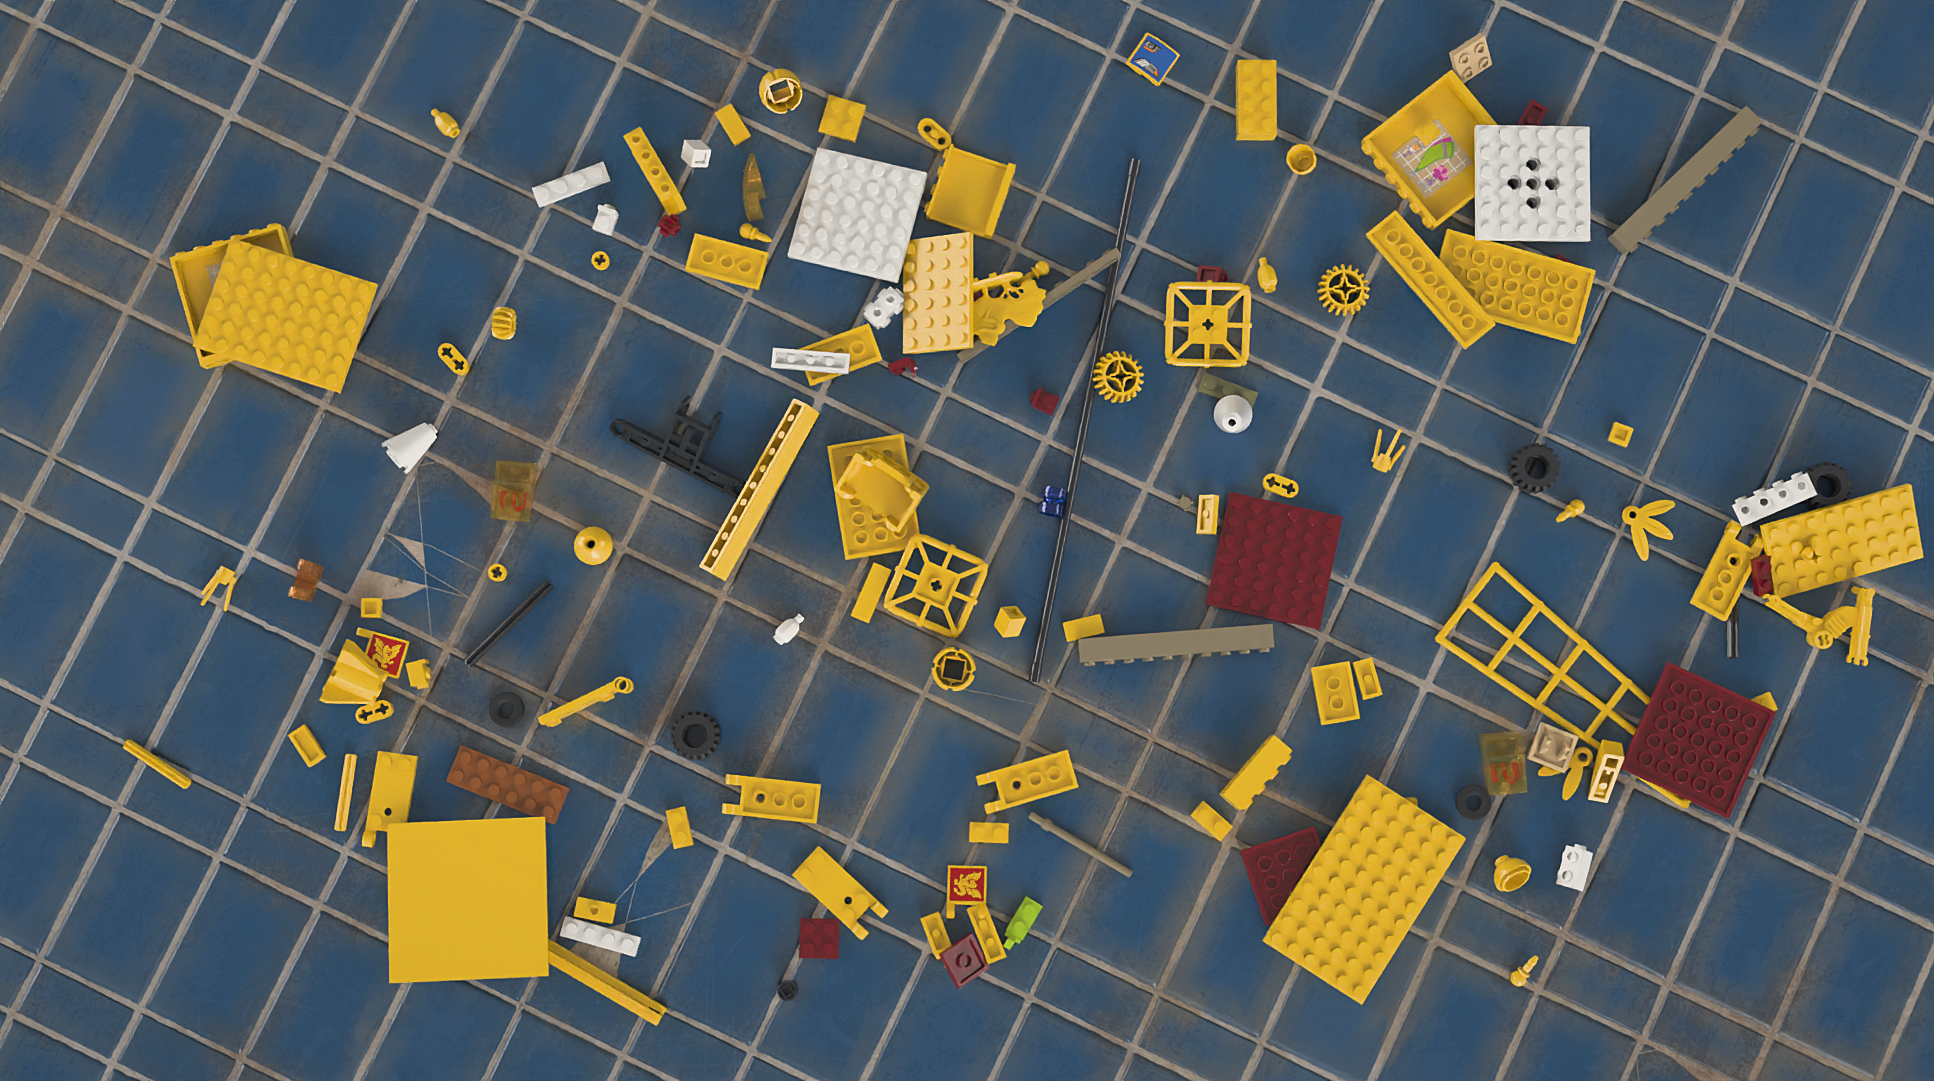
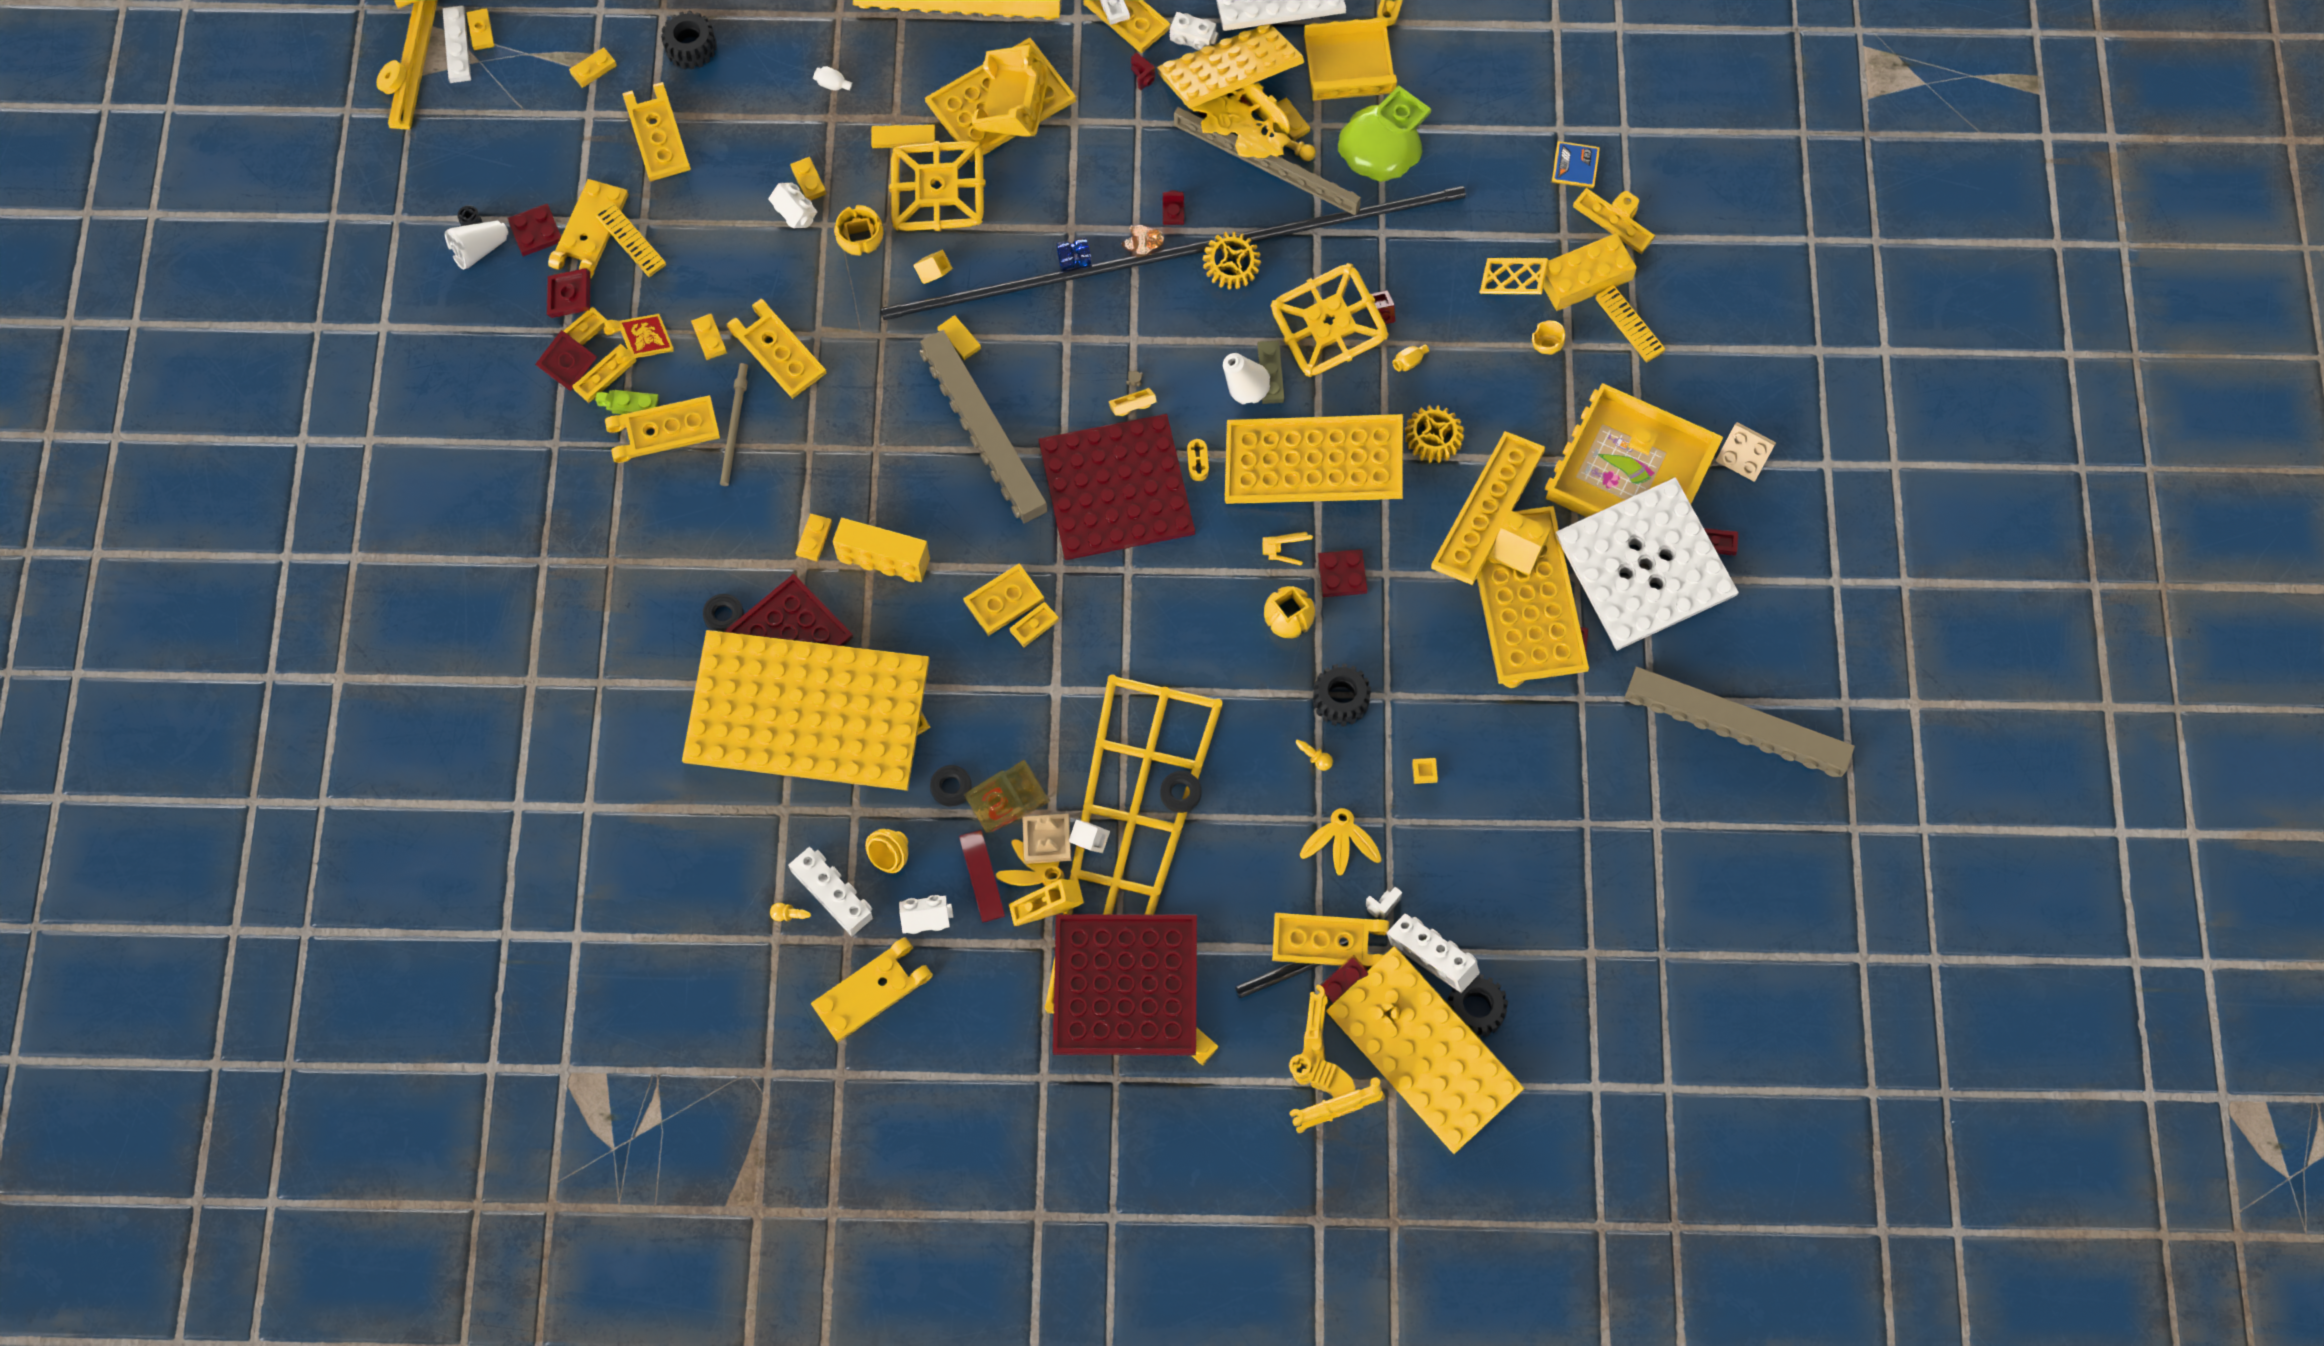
camera: 65 degrees right, 15 degrees down
(613, 1006) = (391, 77): none -> yellow piece
(813, 993) = (475, 241): none -> white cone
(868, 862) = (630, 239): none -> yellow tile
(875, 689) = (808, 179): none -> yellow plate
(898, 933) = (568, 293): none -> dark red plate
(901, 713) = (793, 205): none -> white brick
(1002, 265) = (1298, 125): none -> yellow plate
(1056, 201) = (1384, 137): none -> lime animal
(1061, 894) = (674, 427): none -> yellow hinge
(1062, 442) = (1143, 240): none -> clear orange plate
(1217, 51) = (1616, 217): none -> yellow plate
(1232, 143) = (1507, 262): none -> yellow window
(1235, 918) = (716, 602): none -> black tyre
(1314, 89) = (1630, 323): none -> yellow tile
(1328, 394) = (1314, 459): none -> yellow plate
(1427, 418) = (1342, 573): none -> dark red plate
(1434, 476) = (1295, 624): none -> yellow piece
(1474, 270) = (1519, 542): none -> yellow slope
(1522, 932) = (830, 891): none -> white brick
(1551, 637) = (1187, 779): none -> black tyre
(1556, 809) = (982, 876): none -> dark red slope
(1568, 714) = (1089, 836): none -> white panel
(1613, 944) = (862, 998): none -> yellow hinge
(1714, 513) = (1388, 902): none -> white bracket

